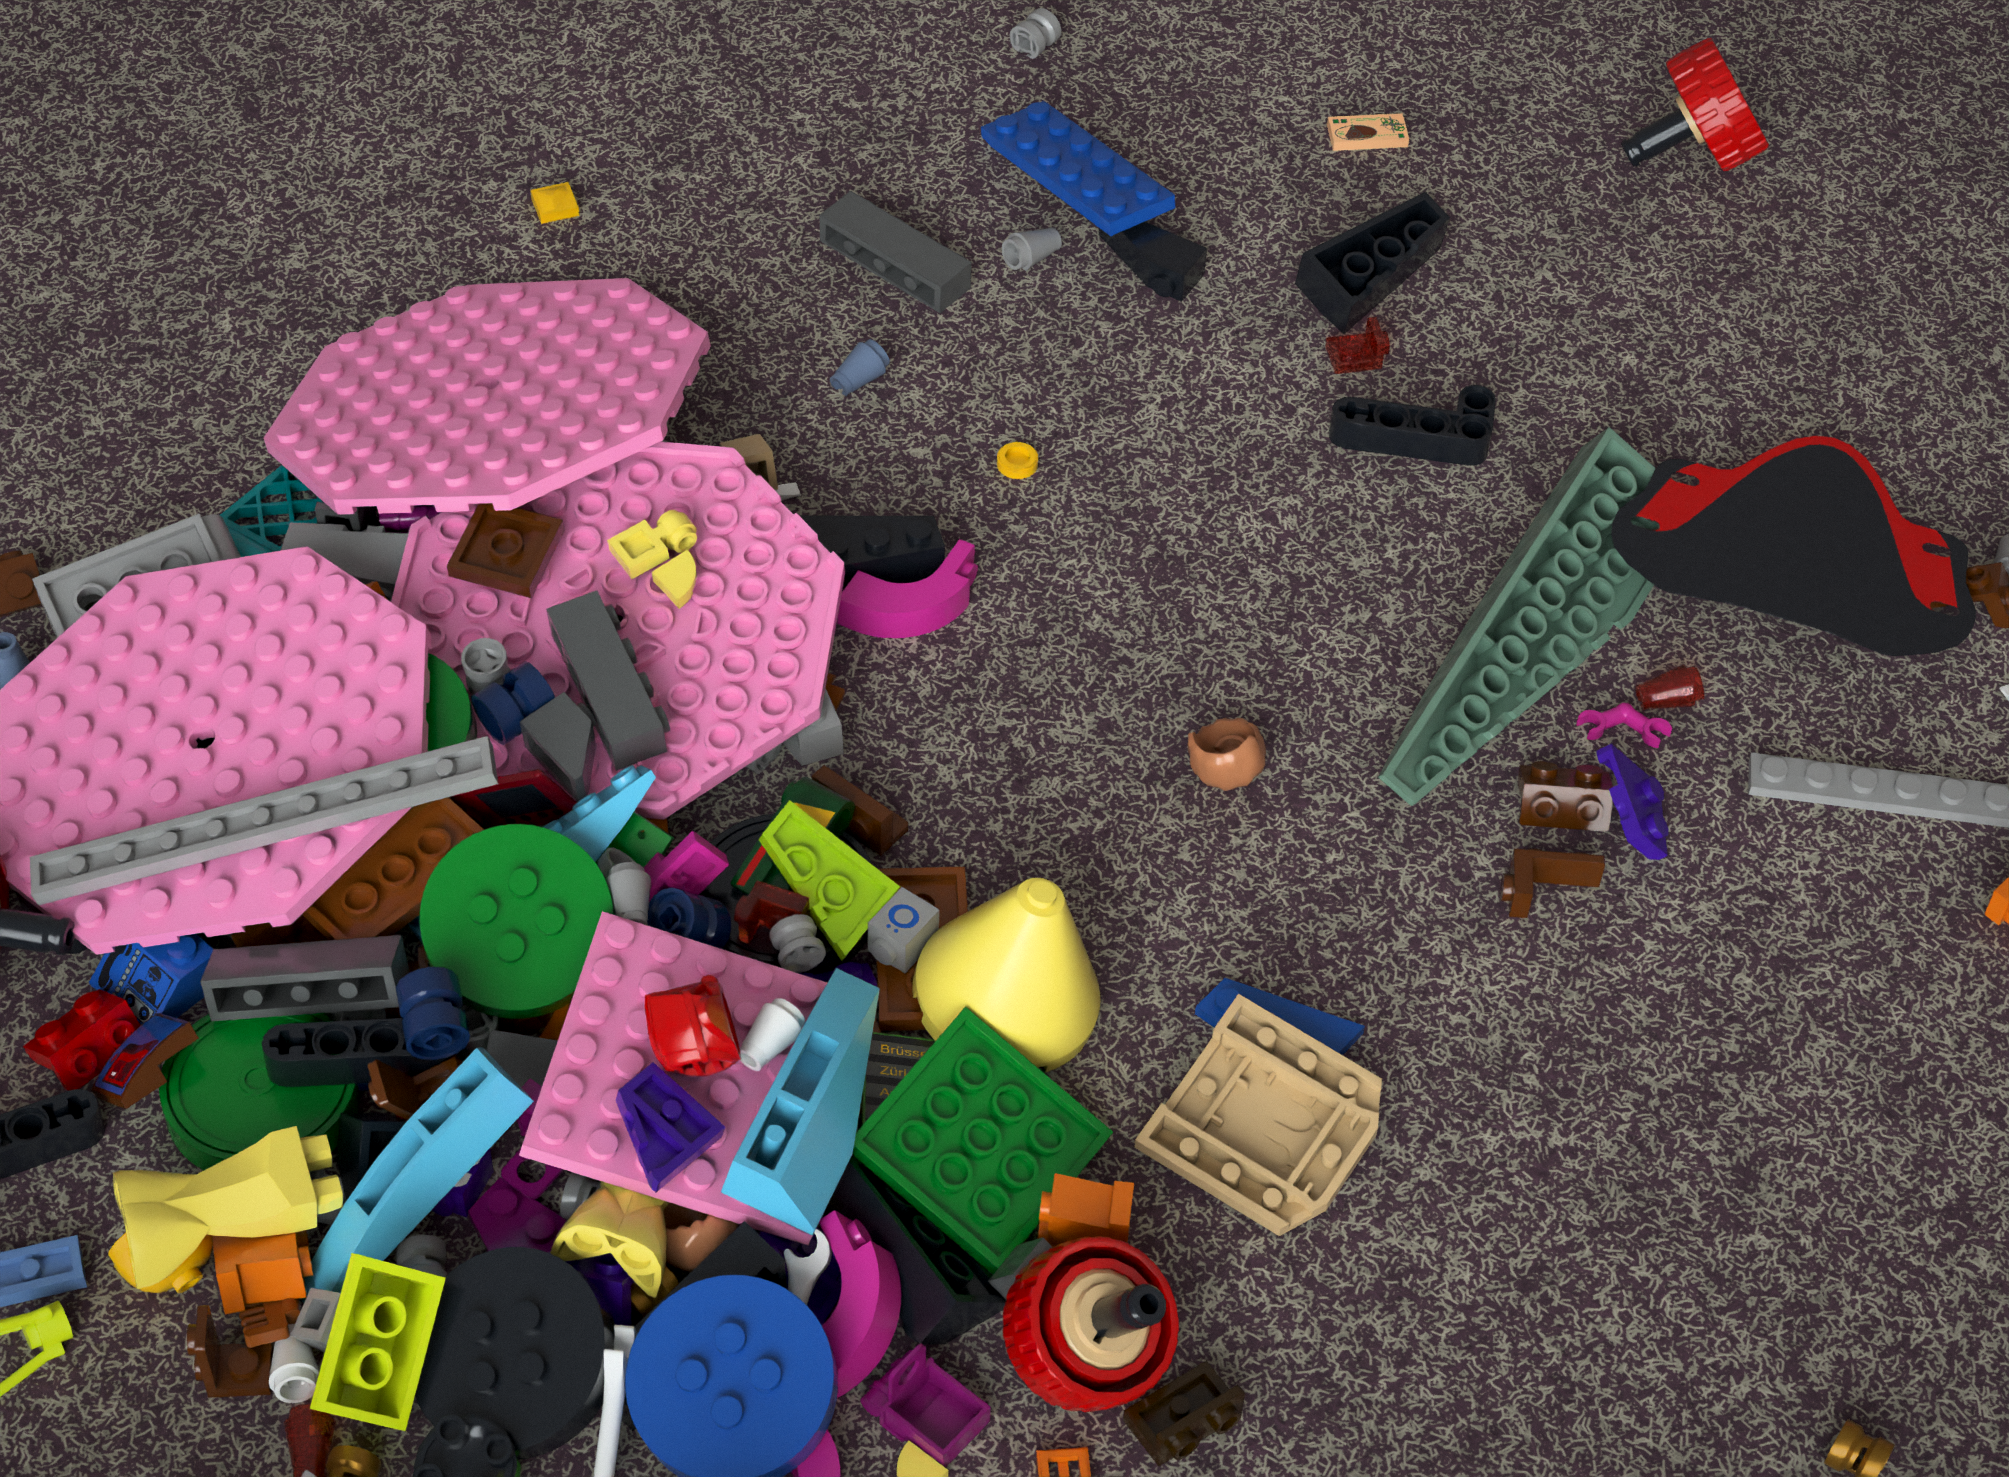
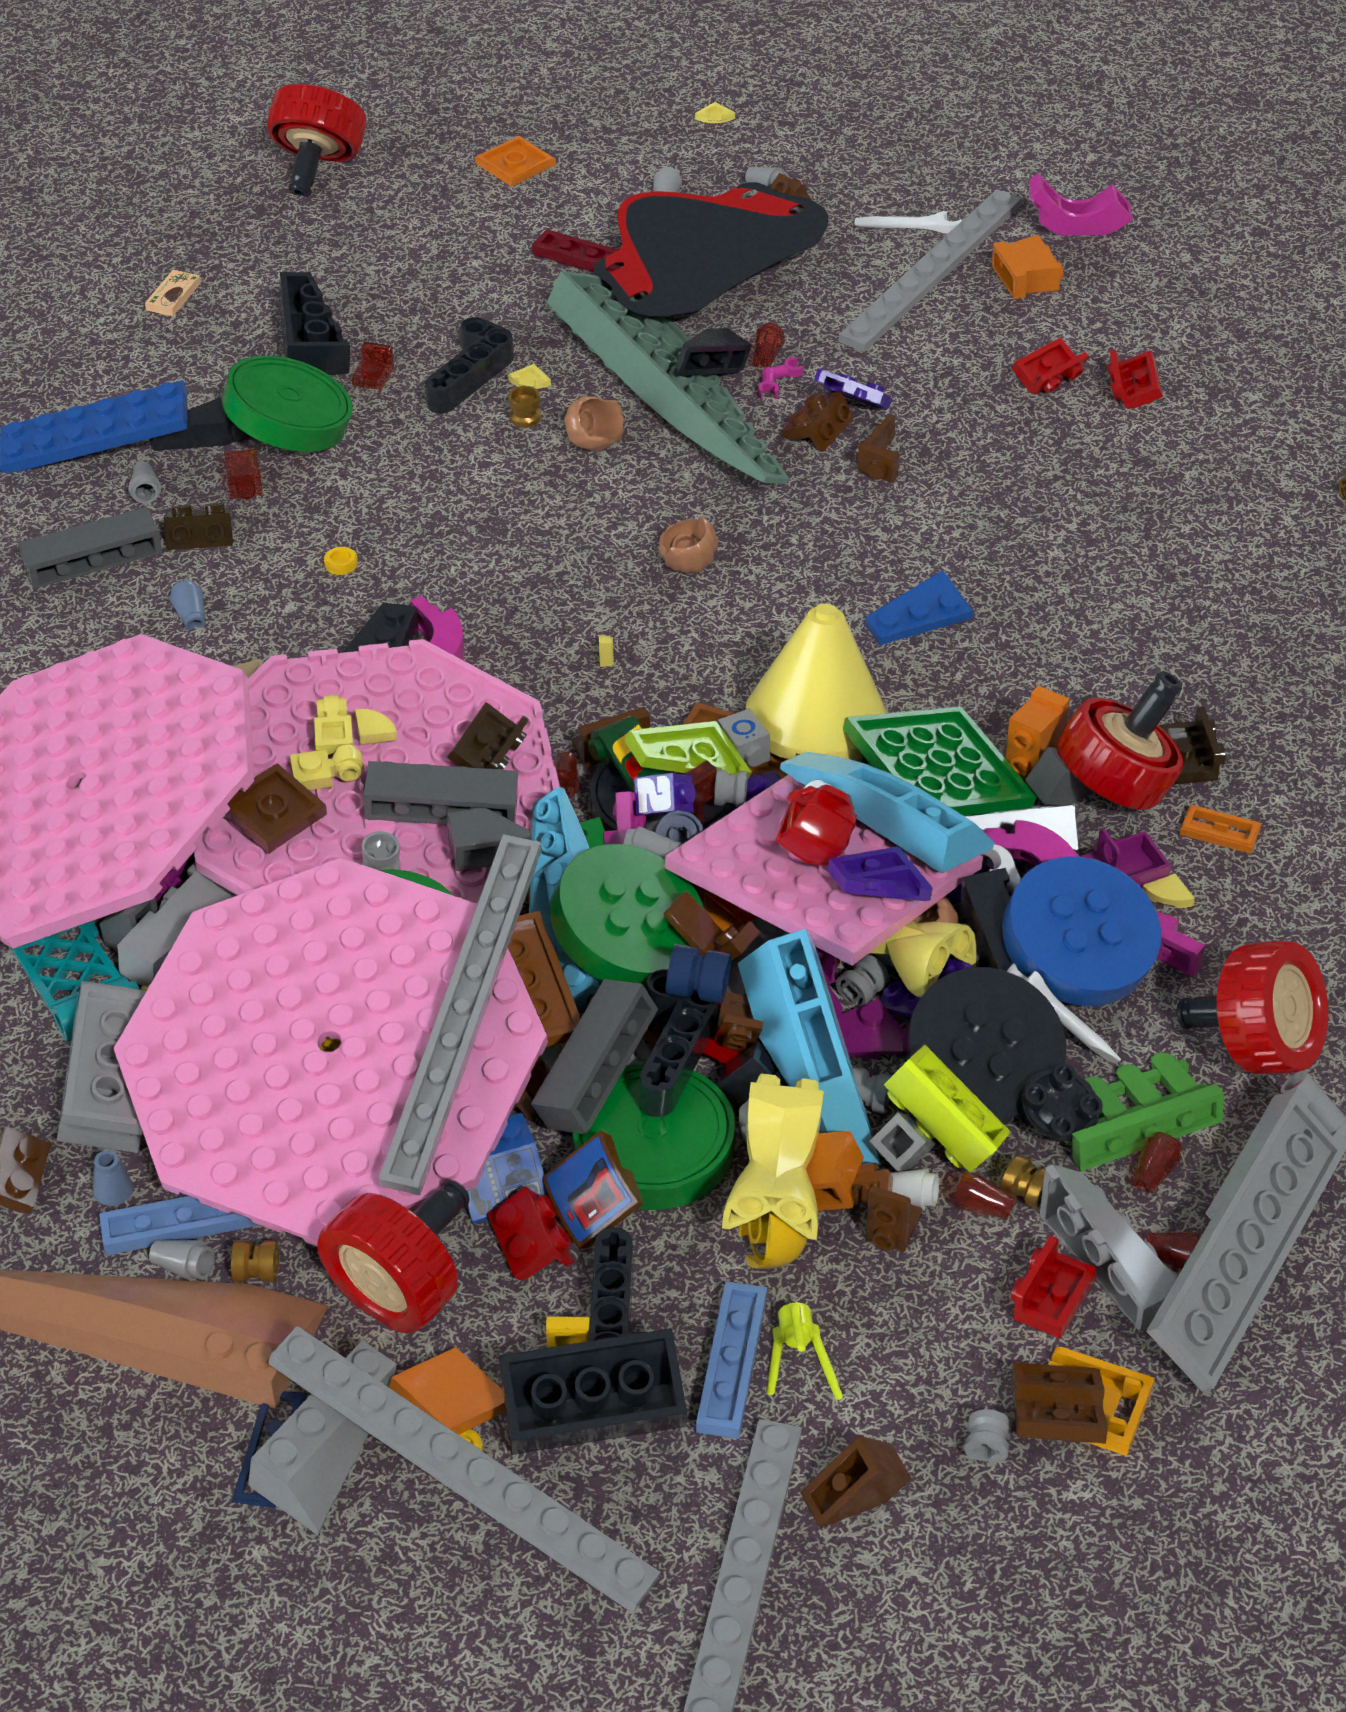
camera: 60 degrees left, 5 degrees down
(505, 705) = (429, 847): dark blue wheel -> none
(524, 997) = (703, 932): none -> reddish brown bracket
(592, 562) = (316, 770): none -> light yellow plate
(707, 683) = (488, 740): none -> dark brown bracket
(724, 878) = (664, 794): none -> dark purple brick
(766, 791) = (567, 771): none -> clear red cone
(991, 320) = (198, 528): none -> dark brown bracket
(1010, 747) = (606, 650): none -> light yellow tile
(1093, 318) = (243, 474): none -> clear red brick
(1217, 298) = (287, 403): none -> green brick
(1266, 1119) = (992, 633): tan wedge -> none
(1380, 505) = (524, 406): none -> pearl gold wheel
(1384, 577) = (594, 423): none -> nougat hair
(1449, 492) = (529, 376): none -> light yellow tile
(1591, 633) = (713, 353): none -> black slope
(1711, 429) = (572, 250): none -> dark red plate
(1850, 313) = (515, 161): none -> orange tile
(1852, 998) = (1049, 366): none -> red bracket
(1897, 1101) = (1134, 379): none -> red bracket
(1910, 470) = (667, 180): none -> light grey cone

